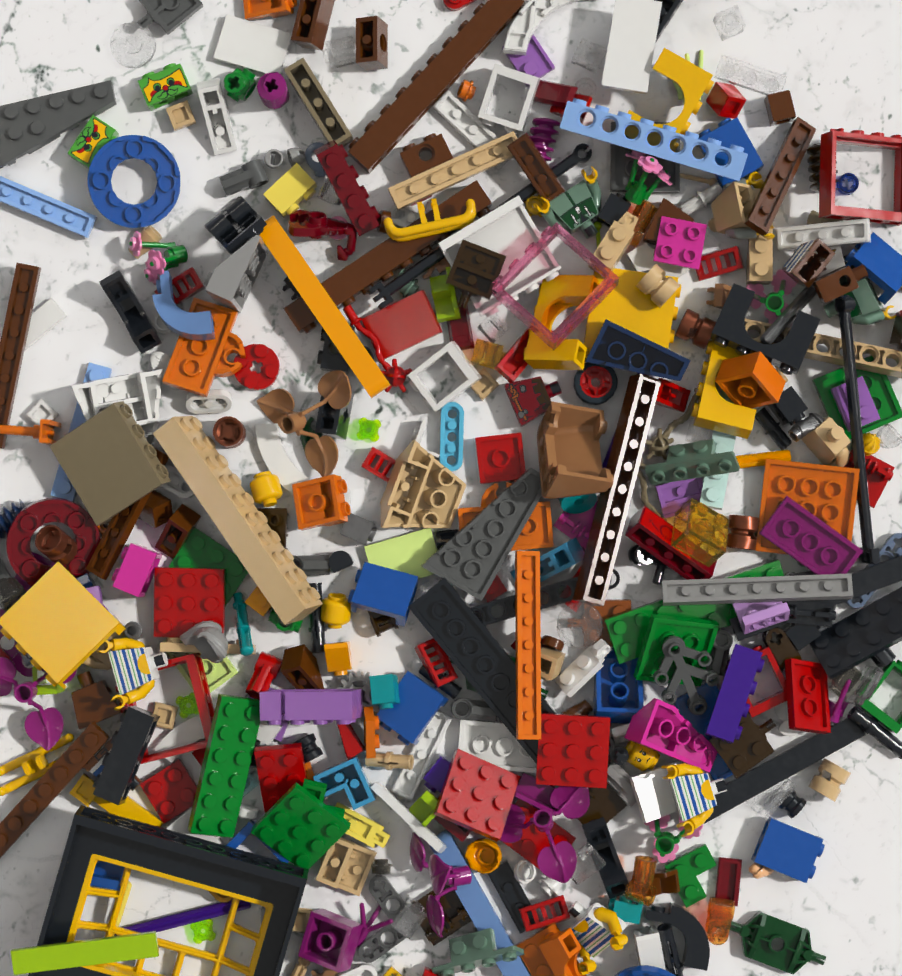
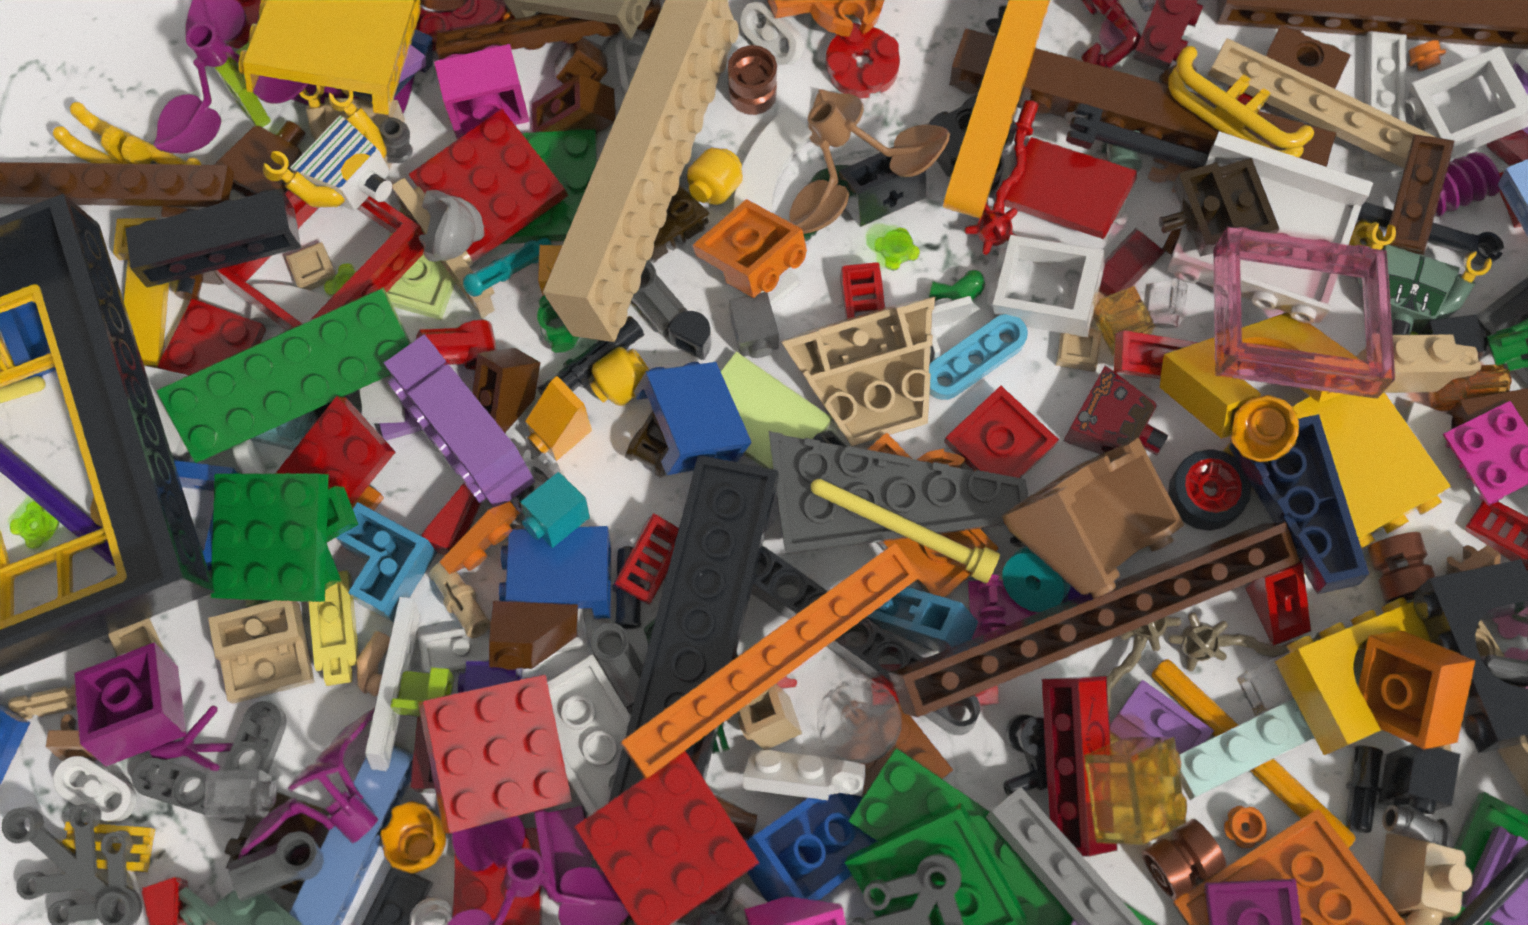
camera: 50 degrees right, 15 degrees down
(313, 750) = (398, 477): black wheel -> none
(381, 867) = (294, 703): clear smoke plate -> none
(387, 822) = (368, 662): none -> light nougat arm
(414, 416) = (970, 284): none -> green arm
(432, 742) = (529, 632): none -> reddish brown slope
(444, 298) = (1140, 221): lime panel -> none
(455, 925) = (272, 866): none -> dark grey piece
(496, 589) = (817, 564): red plate -> none
(552, 518) = (977, 561): none -> light yellow piece
(552, 642) = (803, 703): reddish brown tile -> none
(596, 353) = (1265, 428): none -> light orange hair
(657, 285) = (1420, 460): tan wheel -> none
(692, 462) = (1222, 701): sand green bracket -> none
(749, 486) = (1256, 822): none -> orange plate

